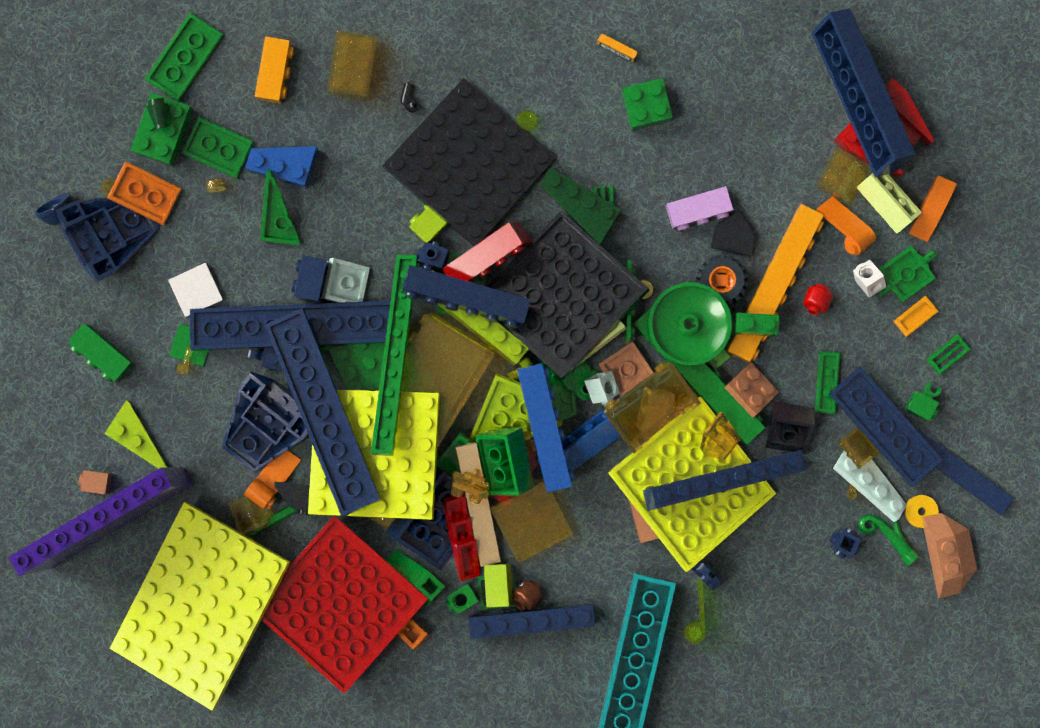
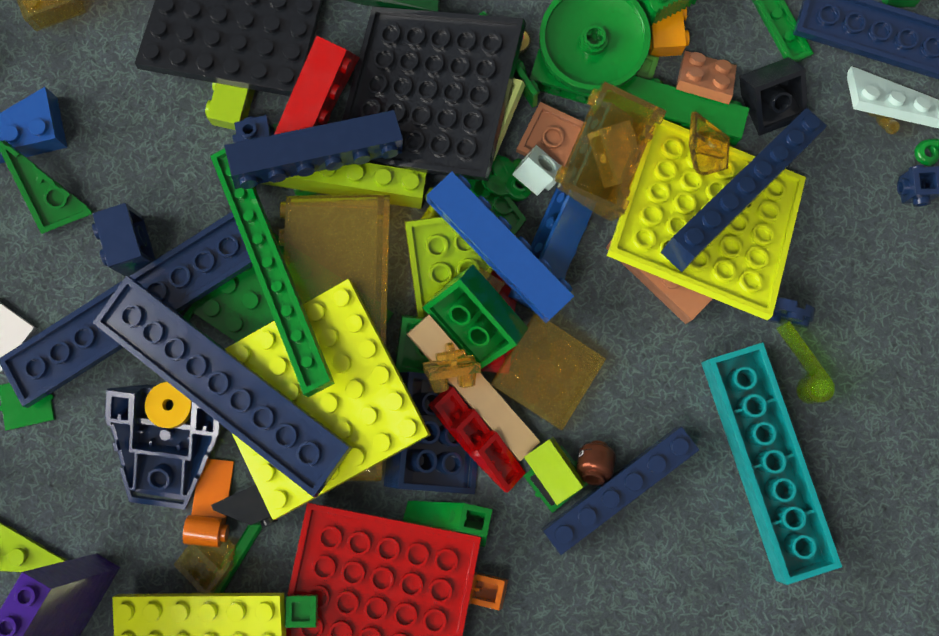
camera: 30 degrees left, 5 degrees down
(182, 368) = (30, 434): clear yellow hand -> none
(268, 358) = (125, 363): dark blue plate -> none
(272, 403) = (156, 406): none -> yellow piece
(295, 578) = (301, 611): none -> green plate
(345, 281) = (166, 221): light aqua plate -> none
(468, 592) = (533, 507): green brick -> none
(858, 447) = (865, 71): clear yellow piece -> none

